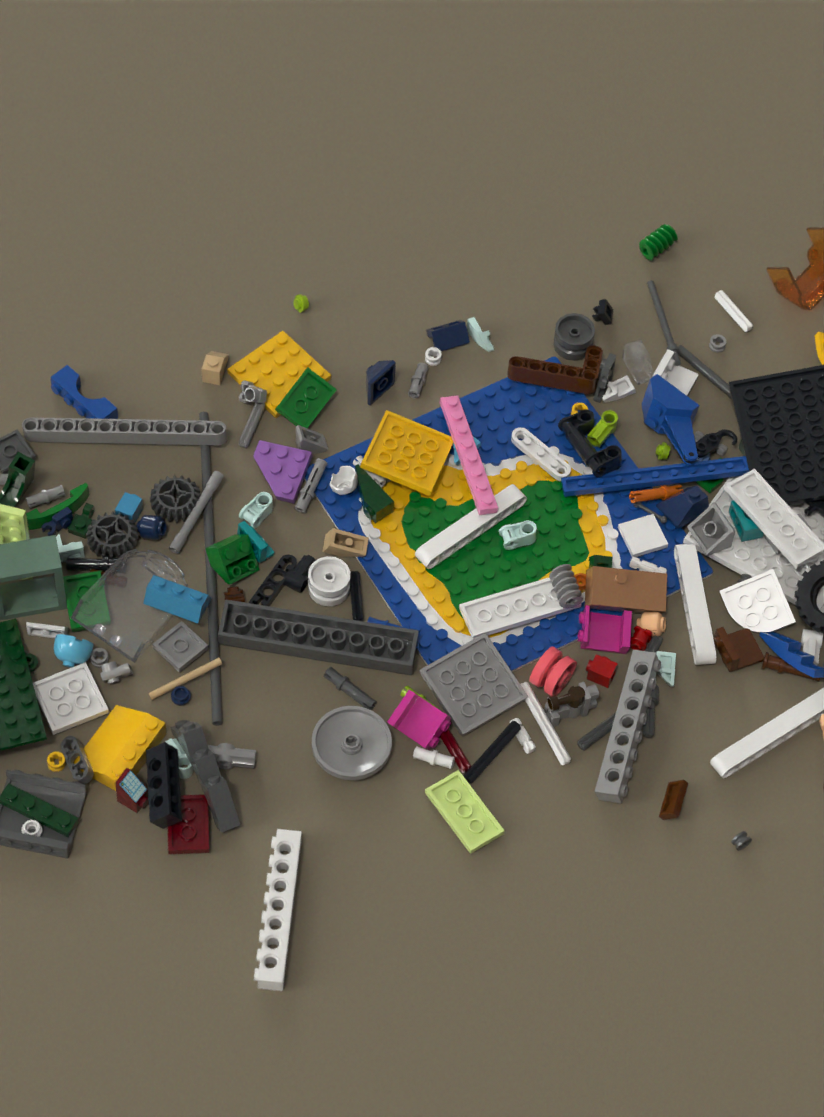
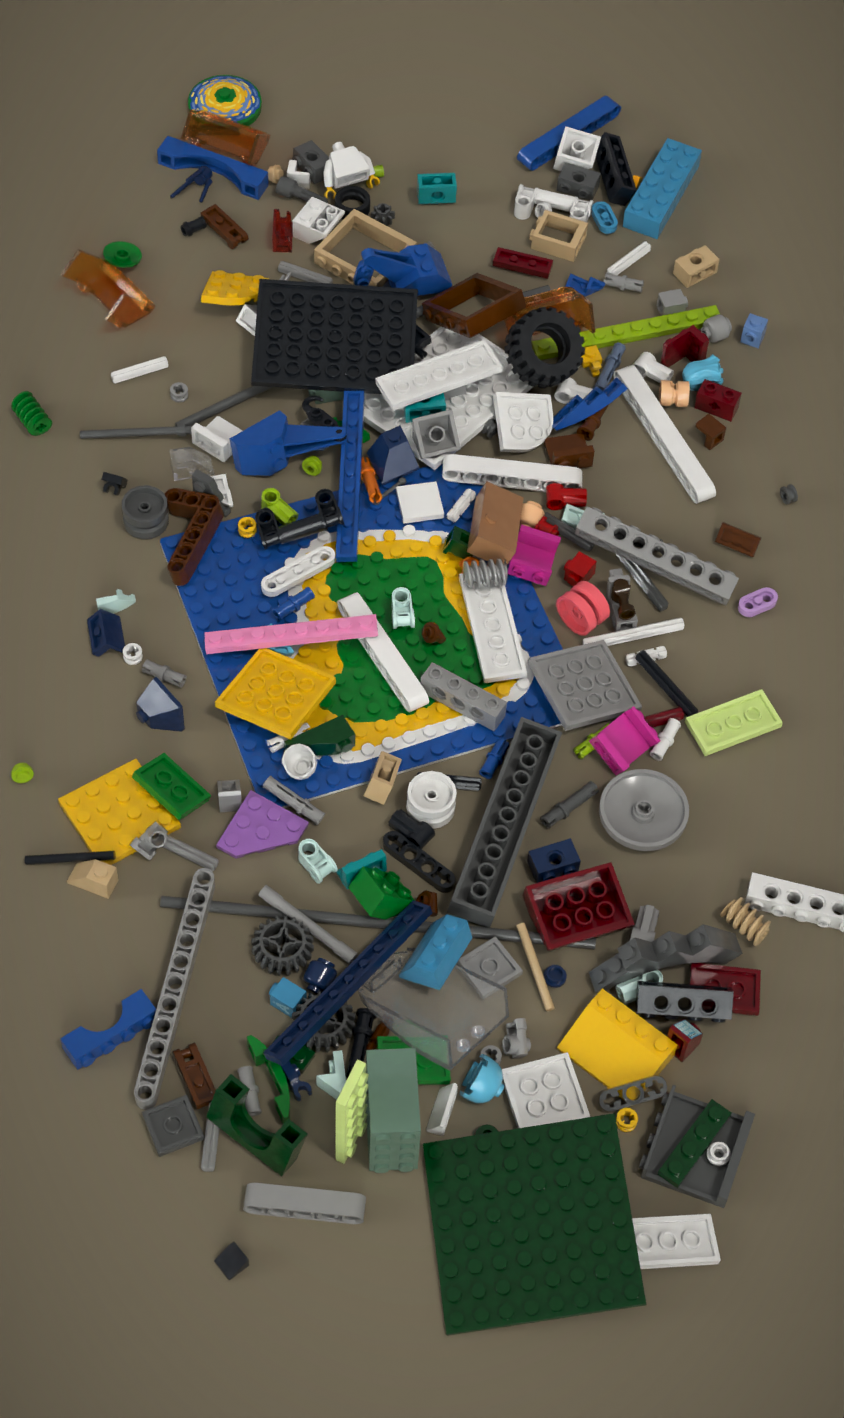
camera: 80 degrees left, 0 degrees up
(56, 459) = (195, 1075): none -> reddish brown plate
(141, 540) = (347, 983): none -> dark blue plate
(229, 347) = (70, 857): none -> black bar
(243, 701) = (577, 906): none -> dark red slope
(254, 834) = (746, 921): none -> tan piece
(288, 671) = (560, 852): none -> dark blue brick
(436, 590) = (463, 696): none -> light grey brick
(501, 563) = (432, 633): none -> reddish brown plate
(506, 455) = (293, 603): none -> blue pin
(606, 823) = (756, 602): none -> lavender plate
(683, 647) = (558, 496): none -> red piece
(797, 765) = (712, 429): none -> reddish brown panel

